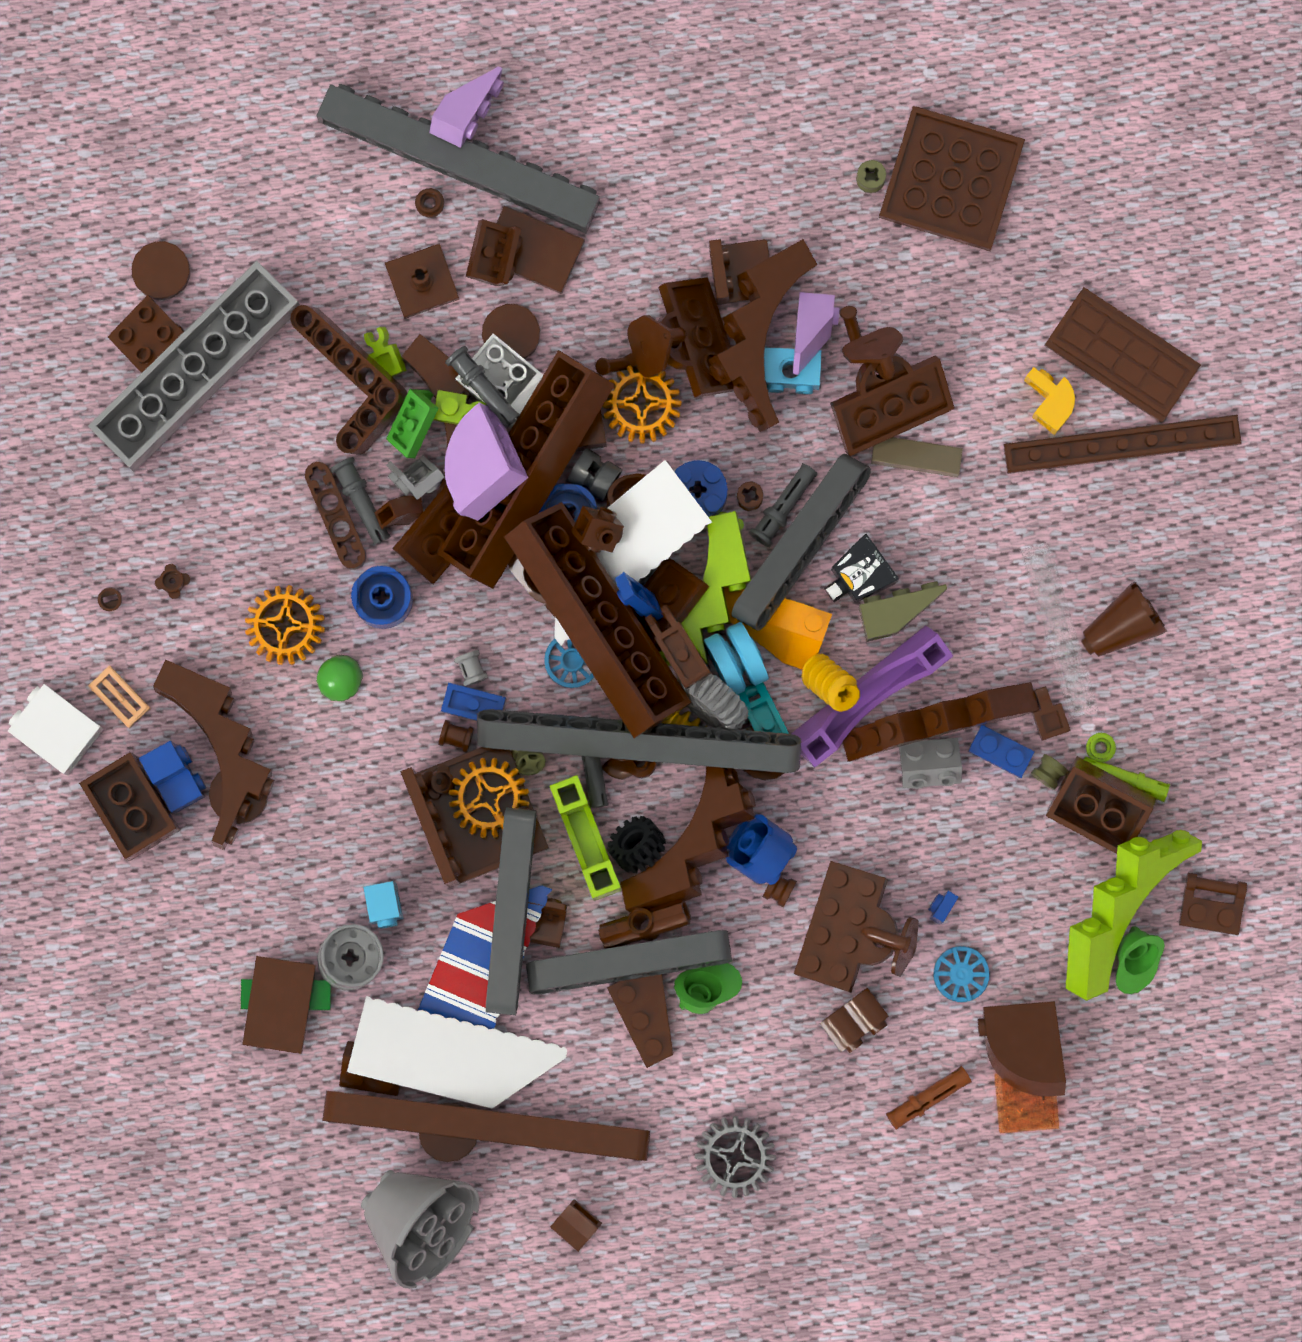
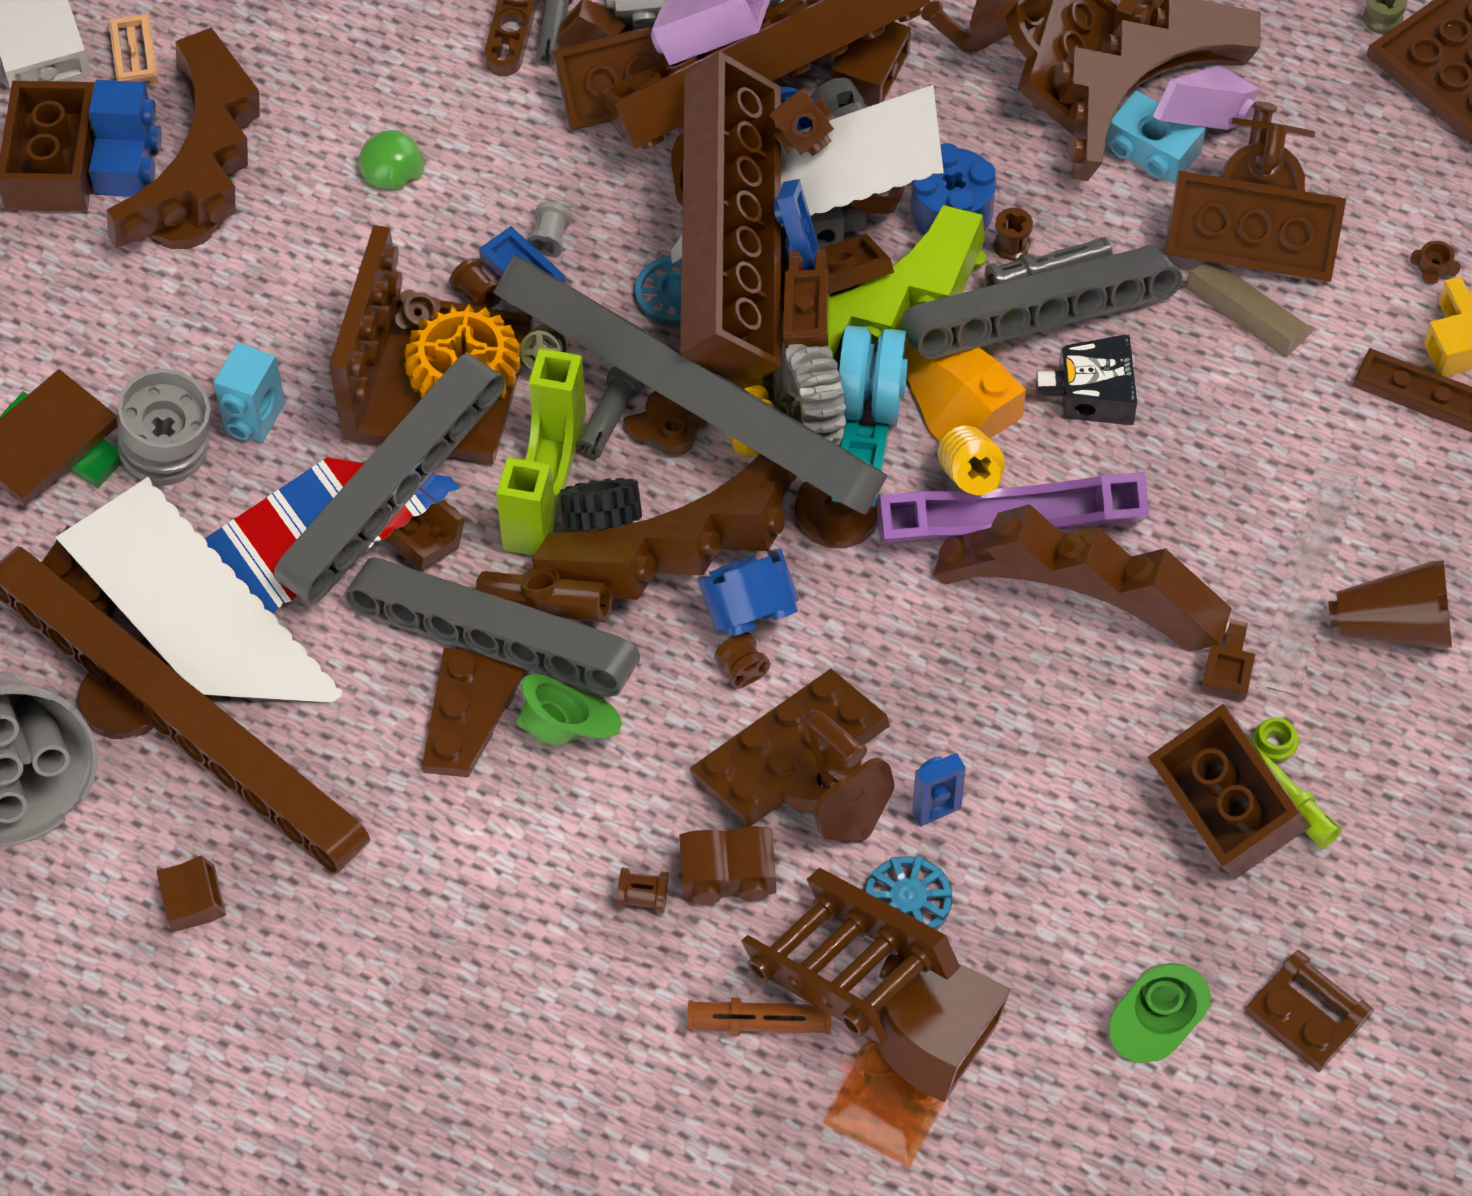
camera: 30 degrees right, 25 degrees down
(286, 610) = (372, 87): light orange gear -> none
(370, 585) = (502, 101): blue brick -> none
(655, 403) = (952, 69): light orange gear -> none
(760, 1164) = (478, 908): light grey gear -> none
(818, 1065) = (642, 890): none -> reddish brown bush
(890, 615) = (1105, 444): olive slope -> none
(931, 763) = (1036, 634): light grey bracket -> none
(952, 1015) = (861, 916): none -> reddish brown fence
(1001, 751) = (1139, 673): blue plate -> none
(1015, 351) = (1439, 252): none -> reddish brown plate
(1049, 772) = (1178, 720): olive wheel -> none
(1115, 902) = (1120, 935): lime arch -> none

